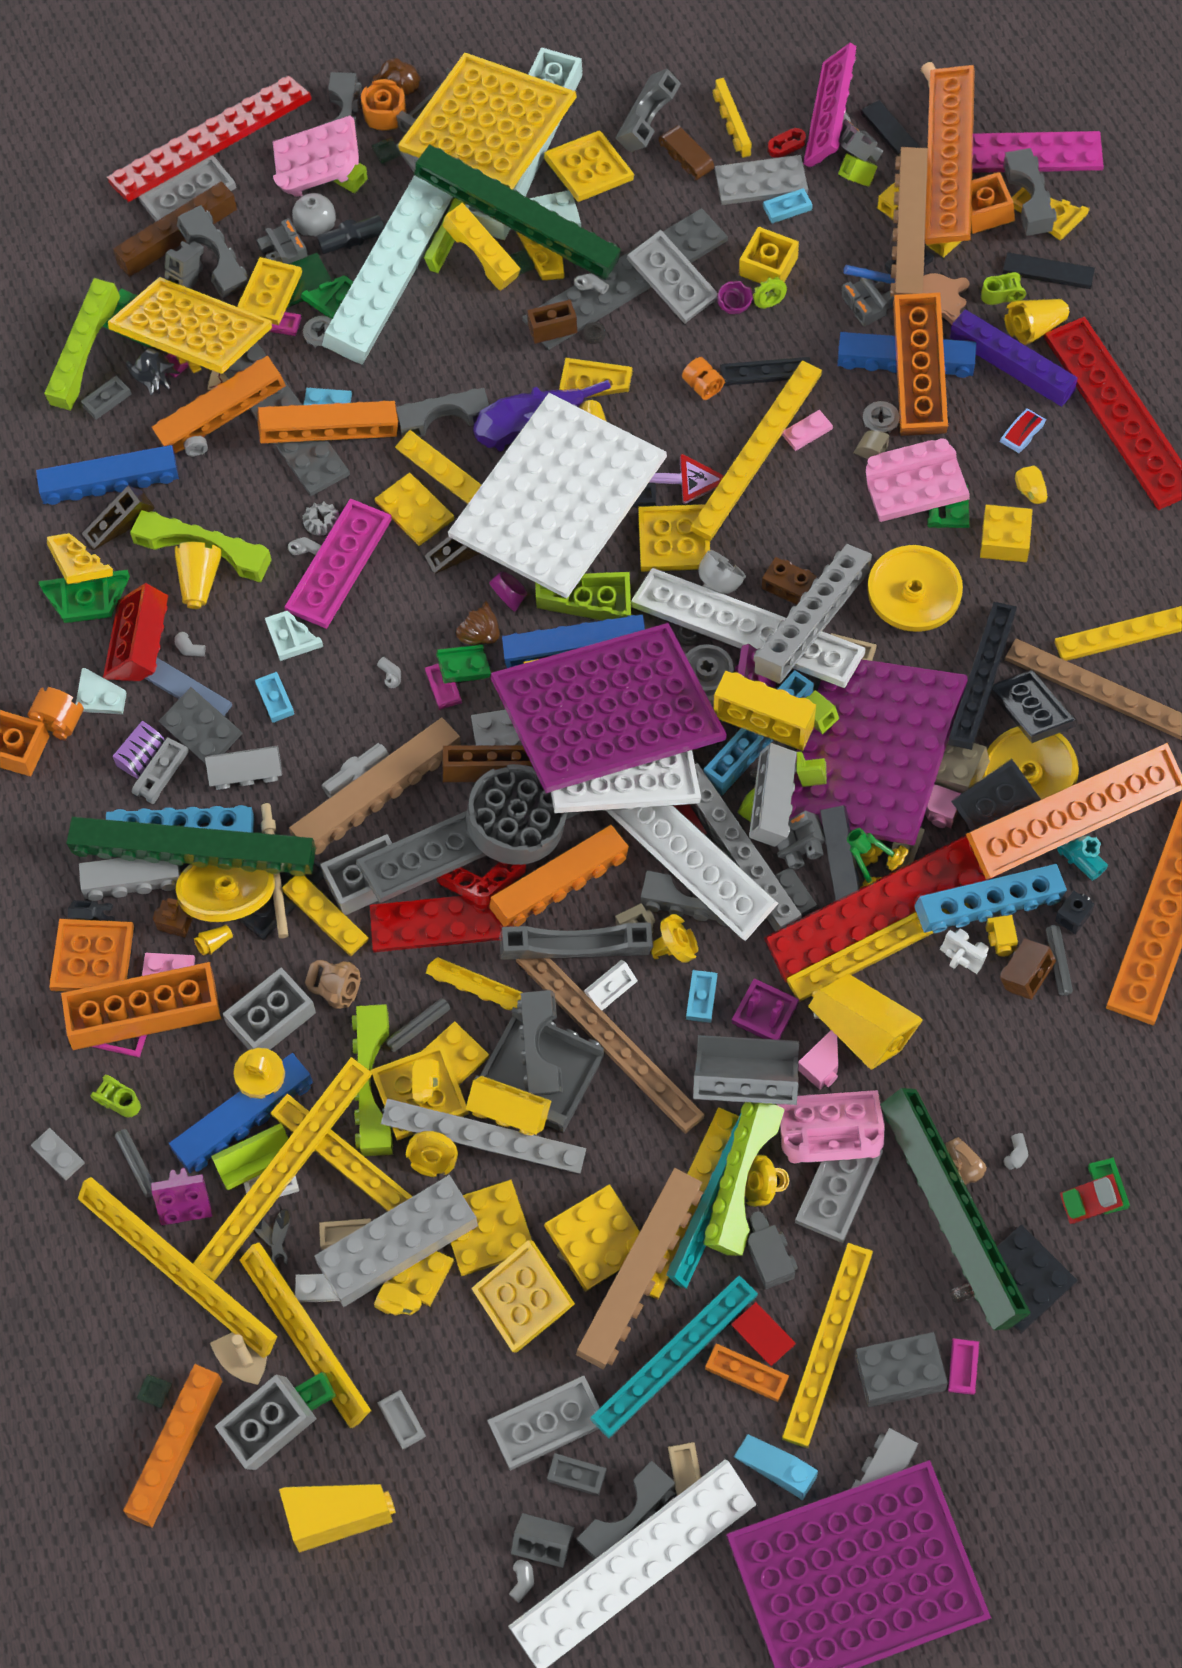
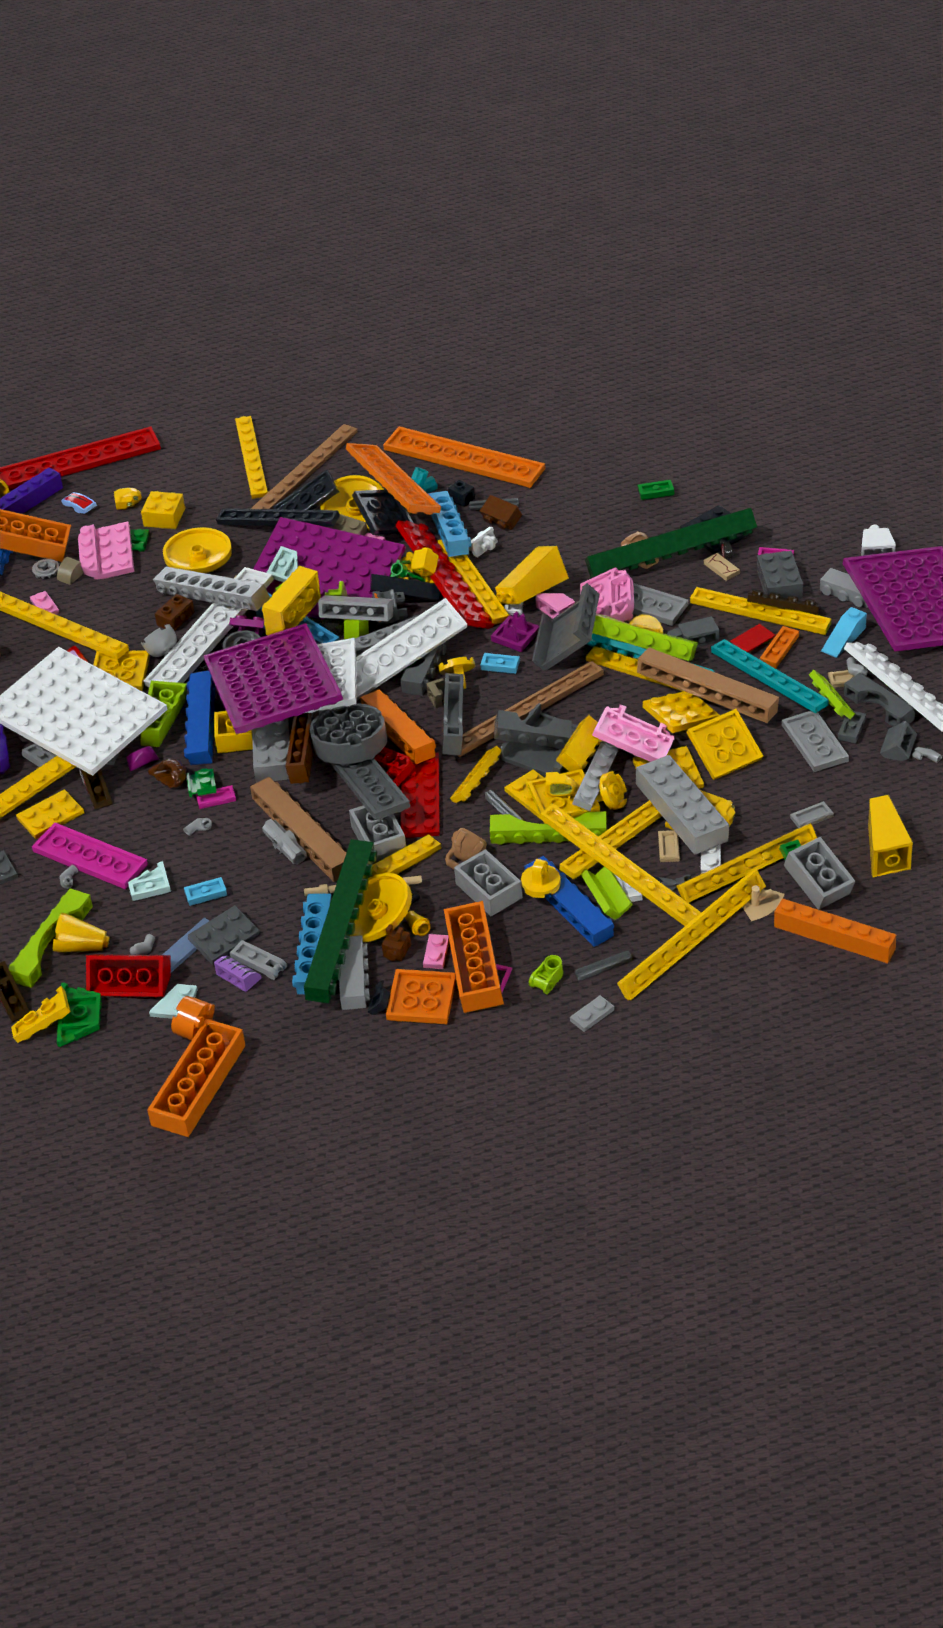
camera: 85 degrees left, 20 degrees down
(154, 1391) = (790, 949): clear green tile -> none
(181, 1198) = (638, 926): magenta plate -> none
(244, 767) = (267, 903): light grey brick -> none
(314, 525) = (35, 872): light grey gear -> none
(527, 1172) = (633, 734): none -> bright pink plate
(611, 985) = (484, 704): white plate -> none
(631, 1443) = (830, 693): none -> lime plate
(691, 1476) = (854, 668): none -> light grey arm
(839, 1375) = (776, 600): none -> dark brown plate
(865, 697) = (283, 564): none -> light aqua wing
(879, 871) = (424, 562): none -> yellow brick
(932, 1288) = (721, 566): none -> tan tile
(994, 1517) = (877, 541): none -> white torso
(1002, 934) = (474, 523): yellow brick -> none
(1019, 1154) = (624, 526): light grey arm -> none
(1091, 1199) = (665, 495): piece -> none

